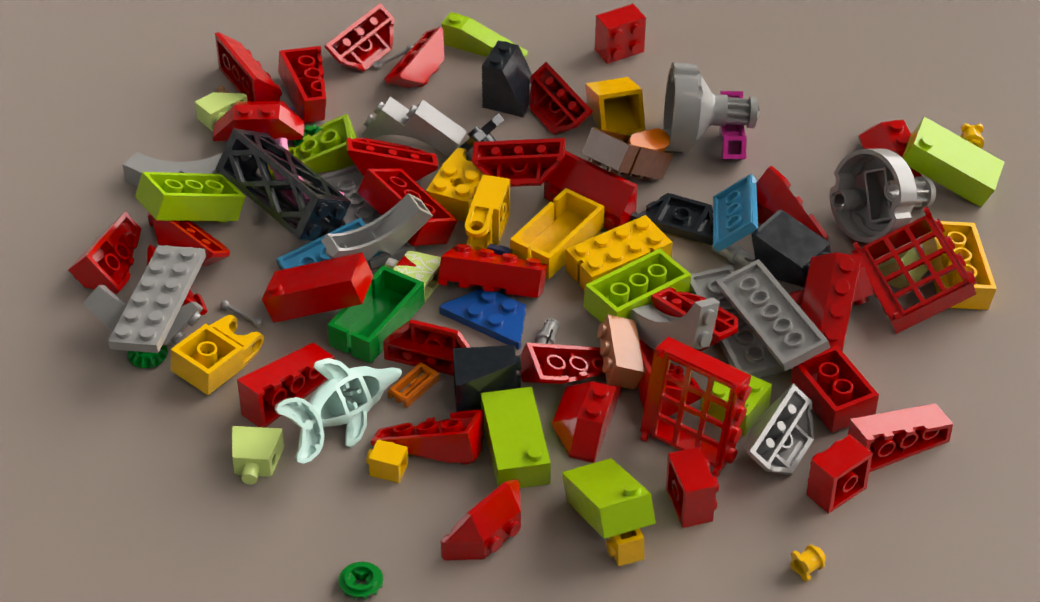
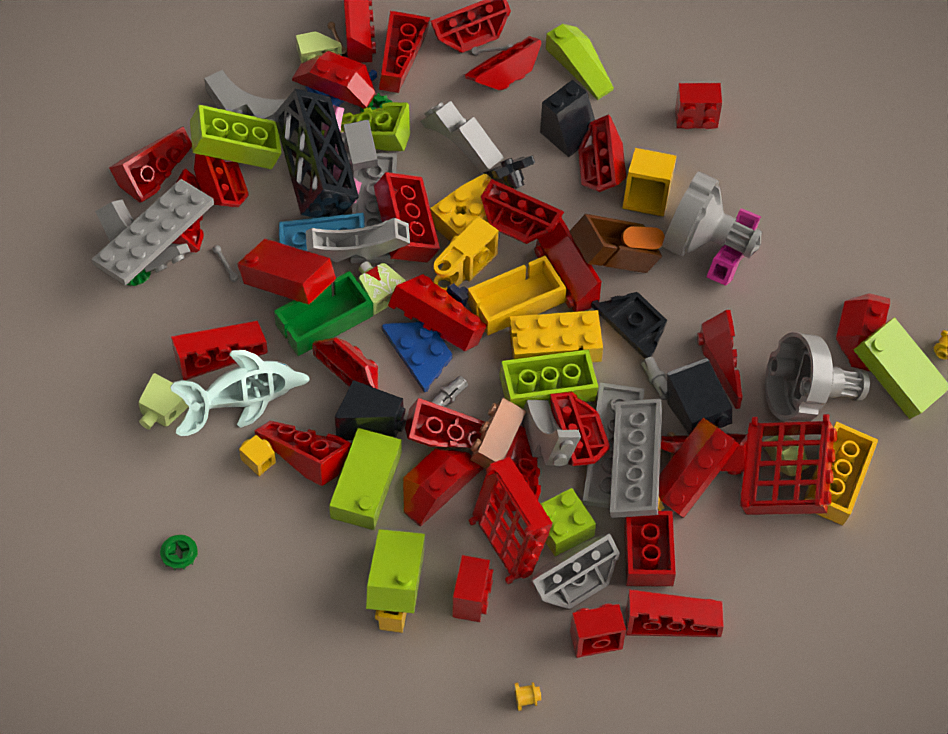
camera: 25 degrees right, 15 degrees up
(214, 354) = (180, 296): yellow brick -> none
(323, 160) = (360, 145): none -> light grey brick
(385, 155) = (417, 157): red wedge -> none
(417, 386) = (321, 394): orange tile -> none
(485, 525) = (299, 548): red wedge -> none
(735, 213) = (675, 340): dark azure tile -> none

